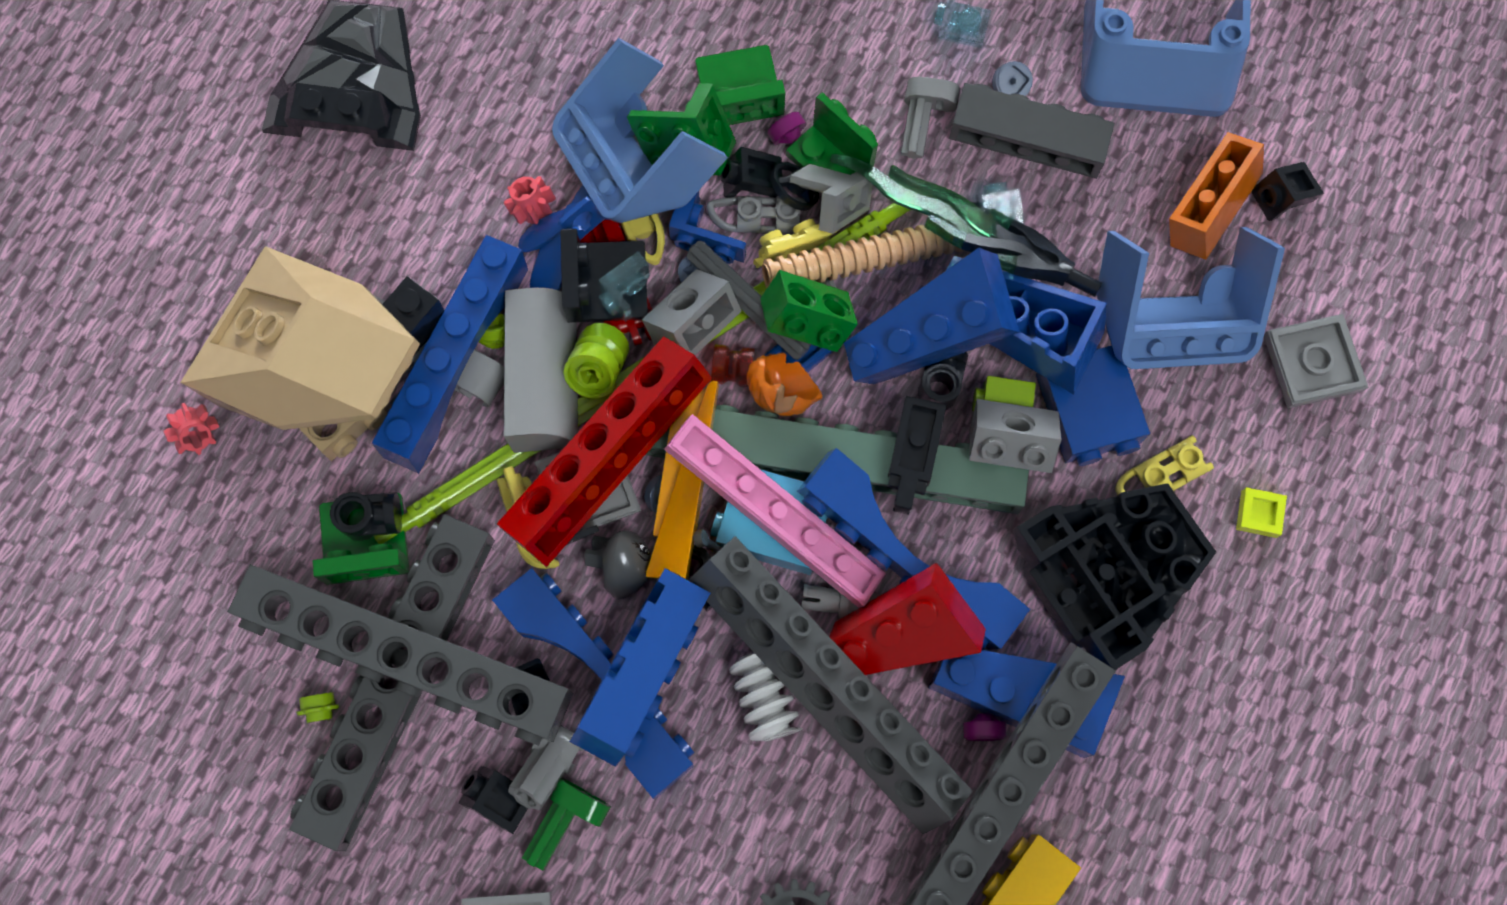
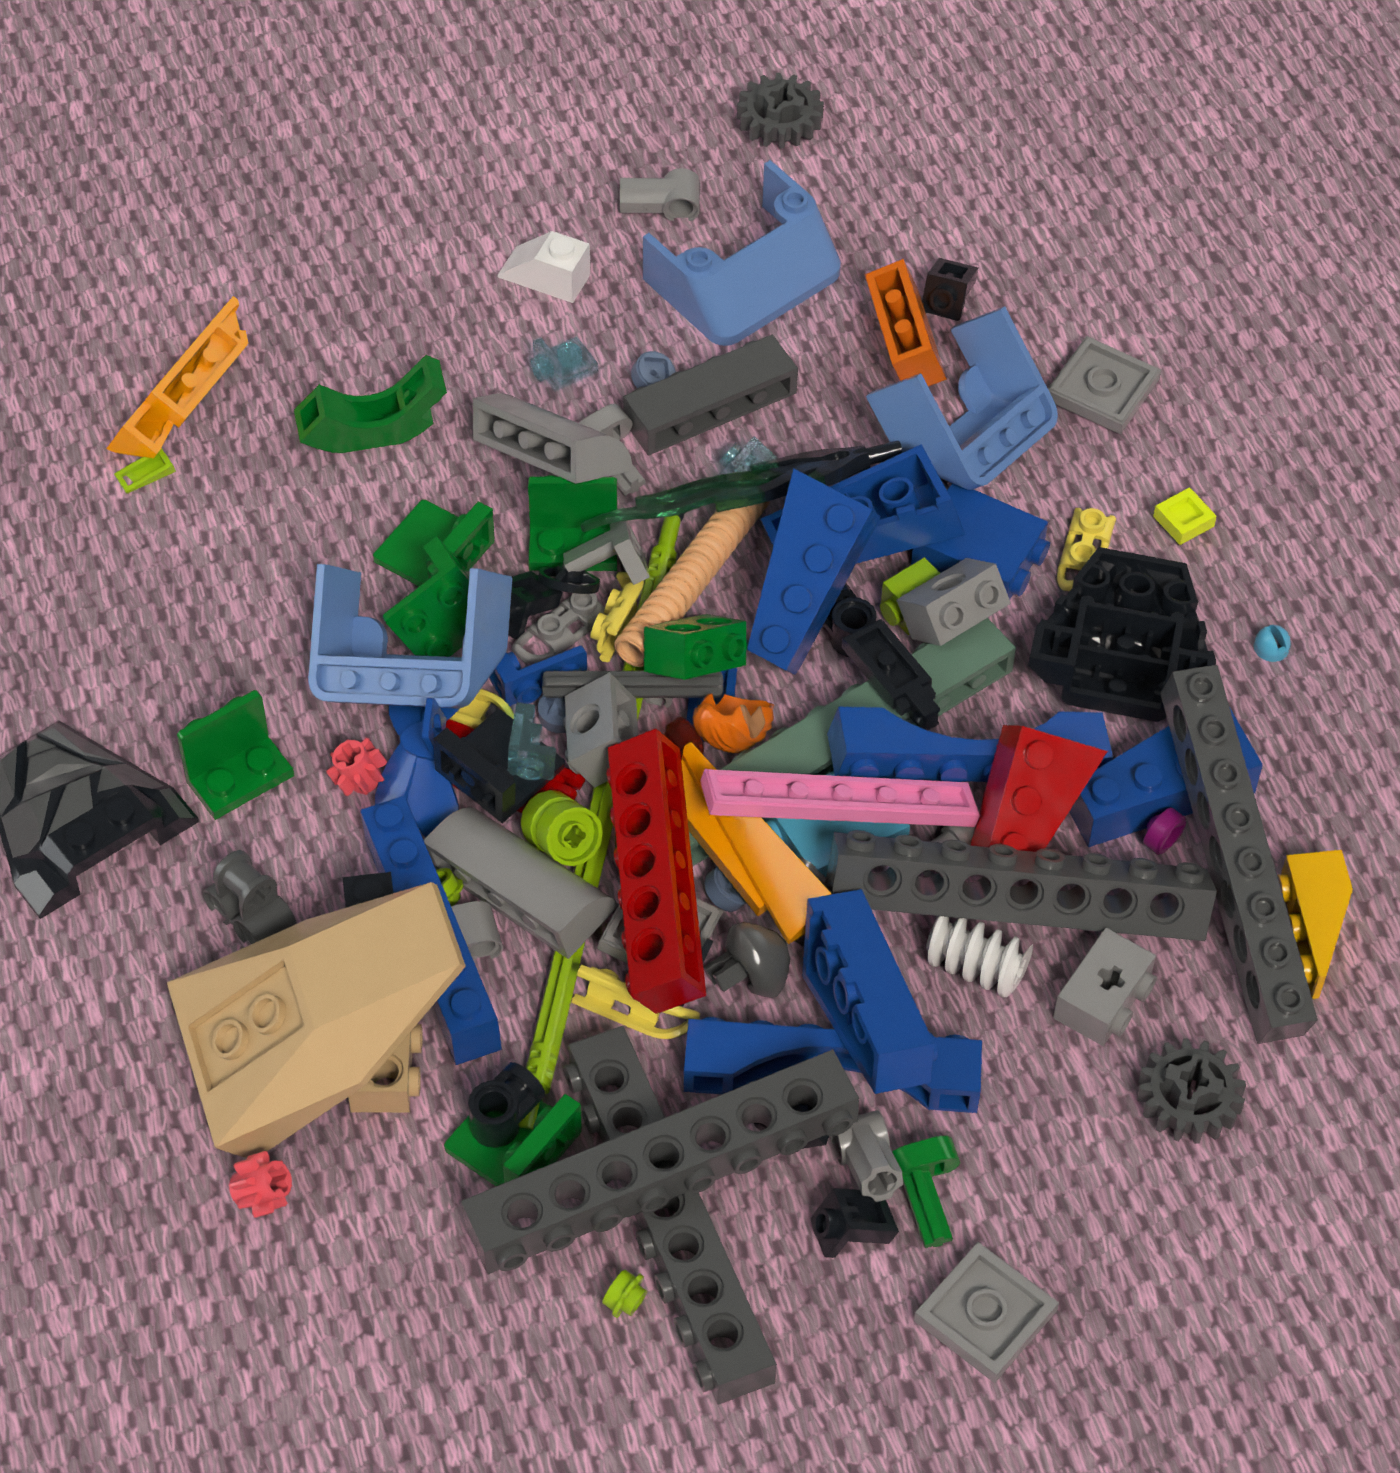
camera: 45 degrees left, 20 degrees down
(371, 235) = (247, 899): none -> dark grey piece
(463, 125) = (231, 755): none -> green bracket
(787, 128) = (514, 546): magenta tile -> none
(841, 785) = (1085, 999): none -> light grey brick
(872, 74) = (547, 439): none -> light grey brick
(1211, 660) = (1266, 644): none -> medium azure hinge

